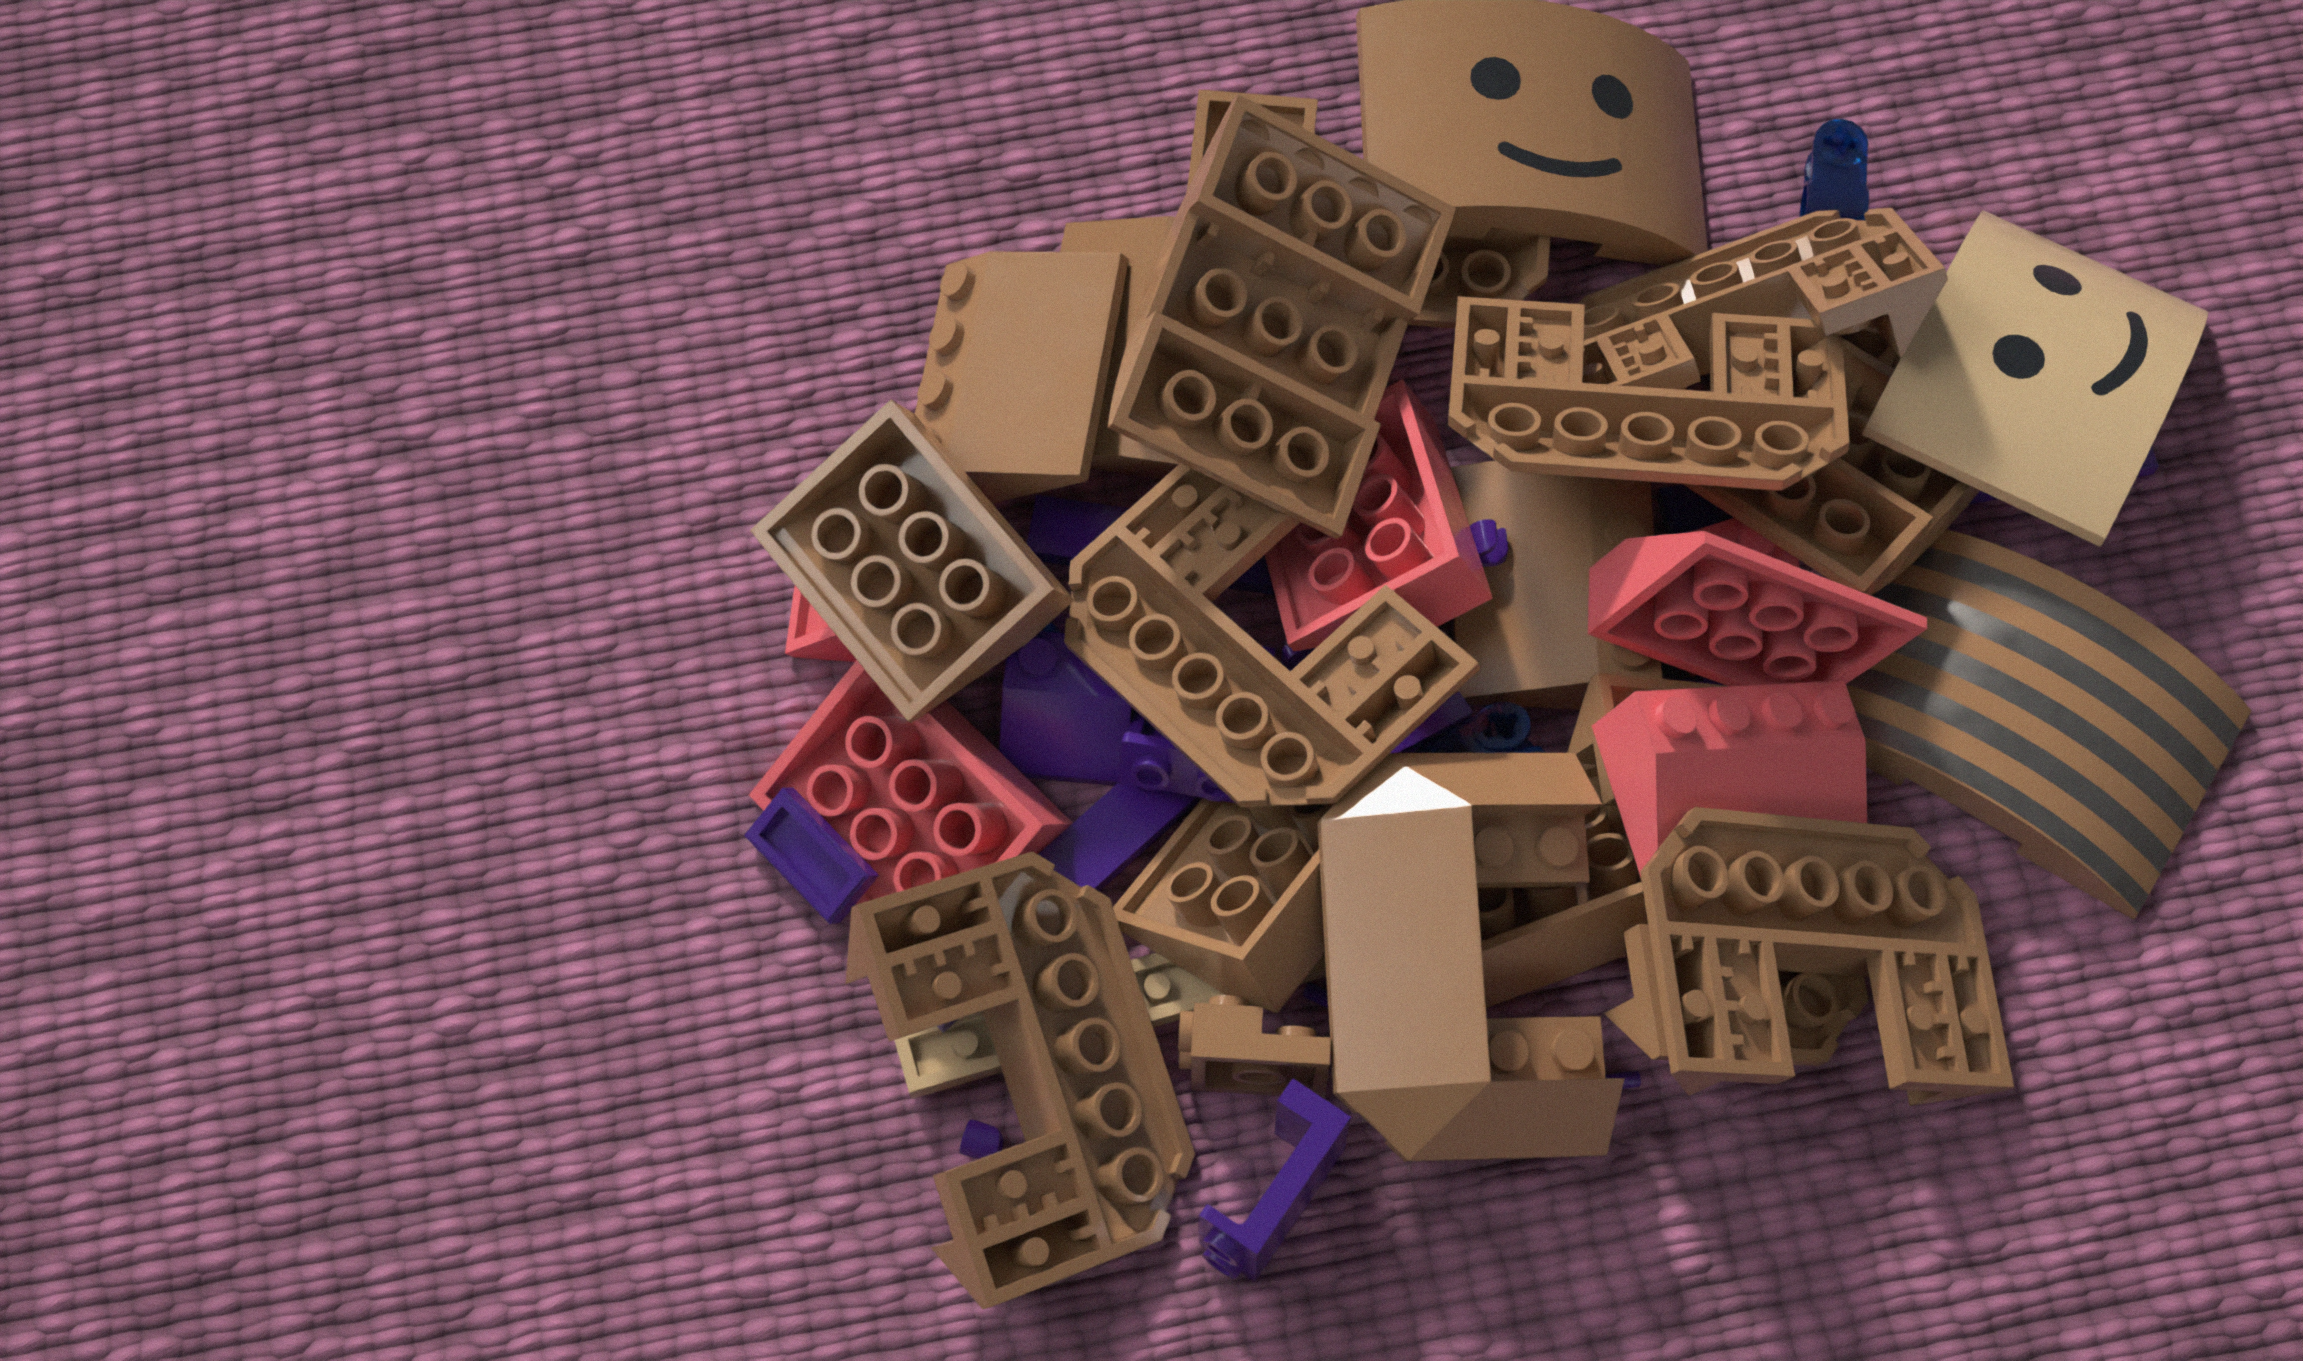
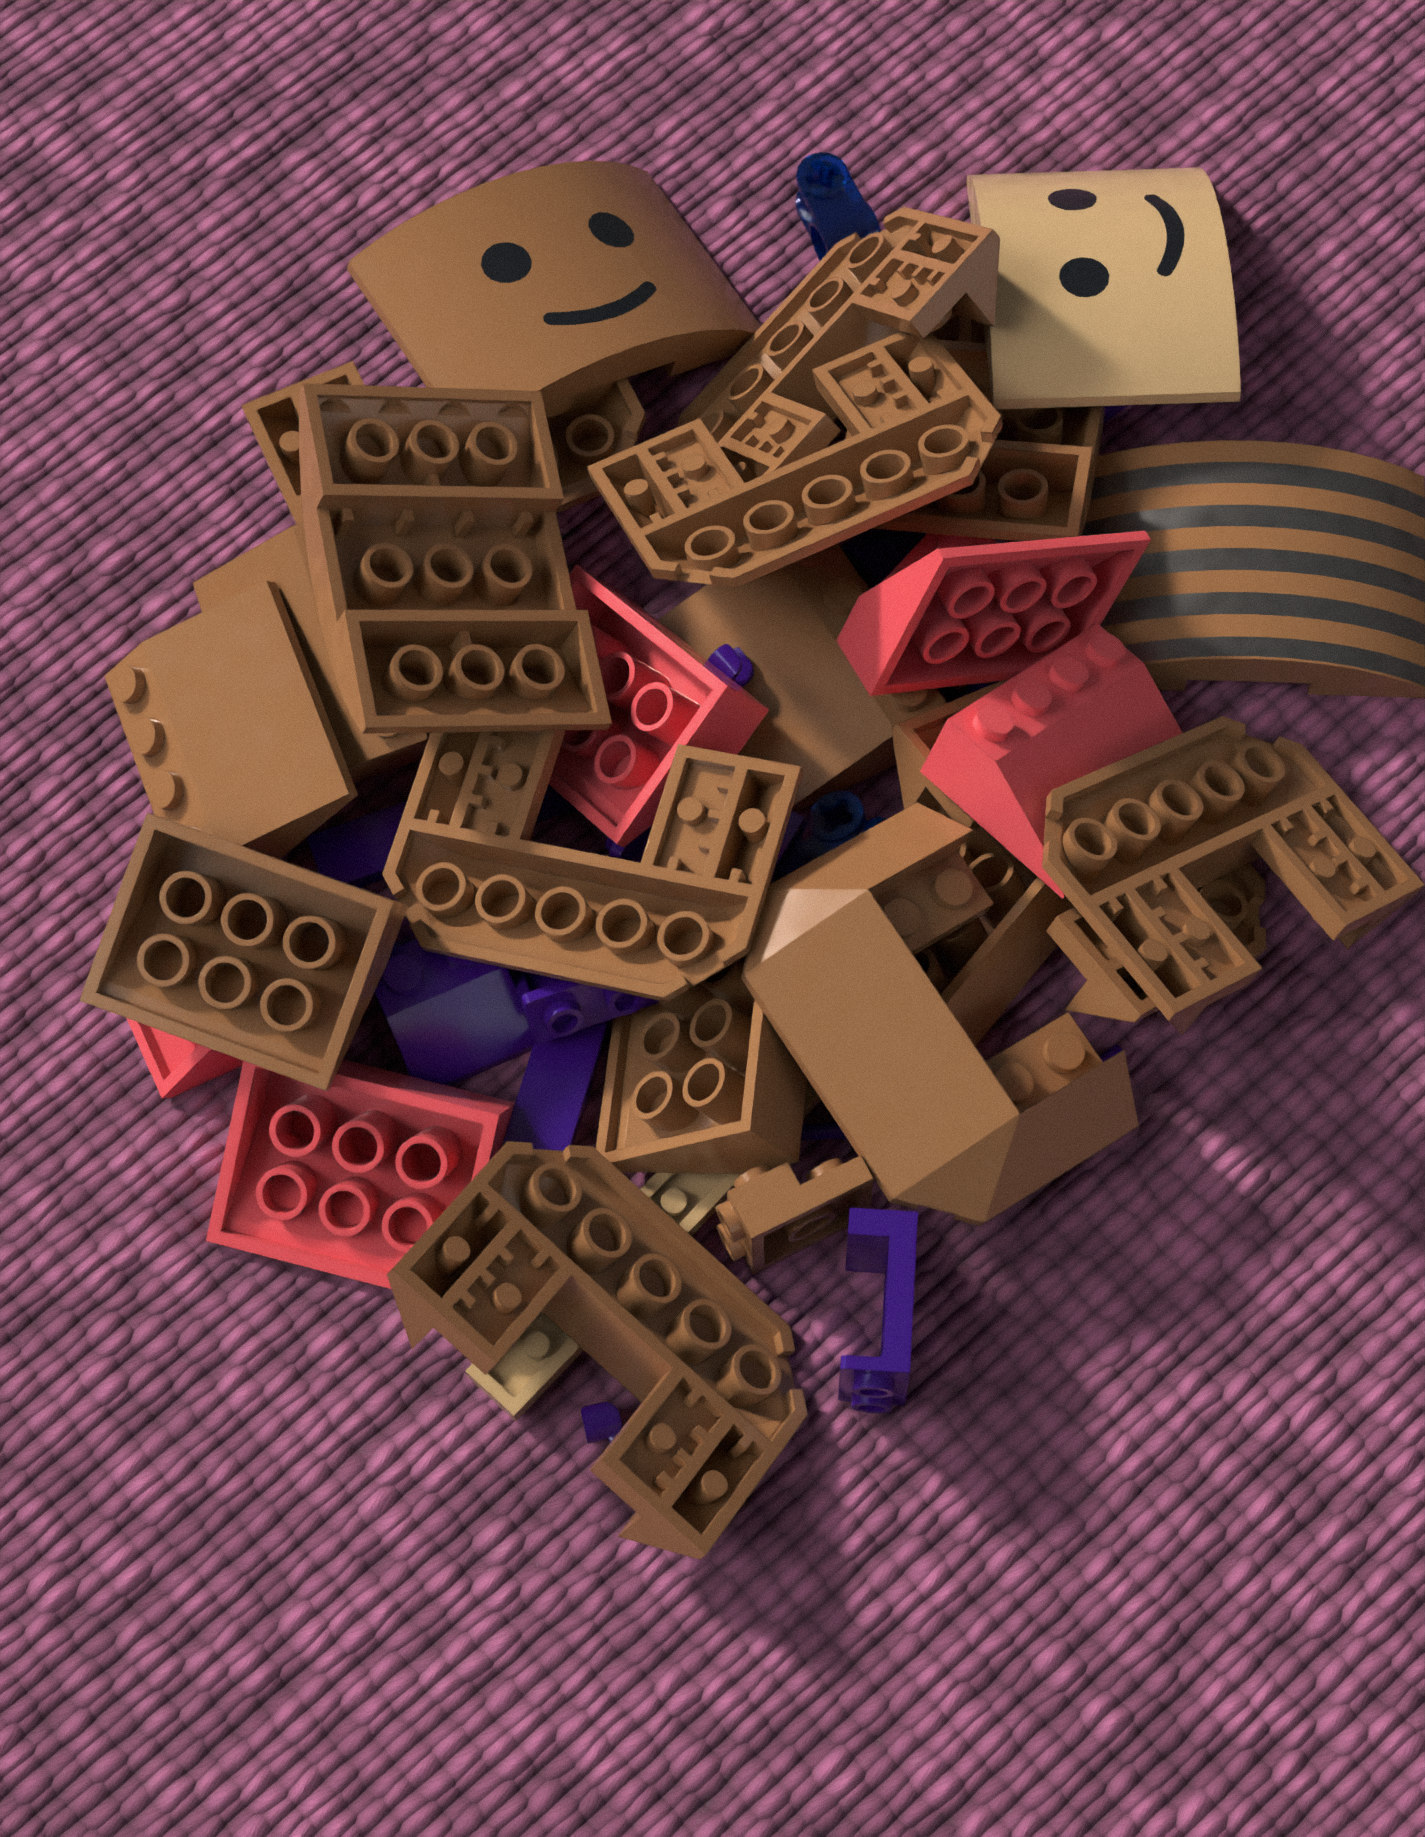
camera: 30 degrees left, 0 degrees up
(811, 855) = (297, 1260): dark purple tile -> none

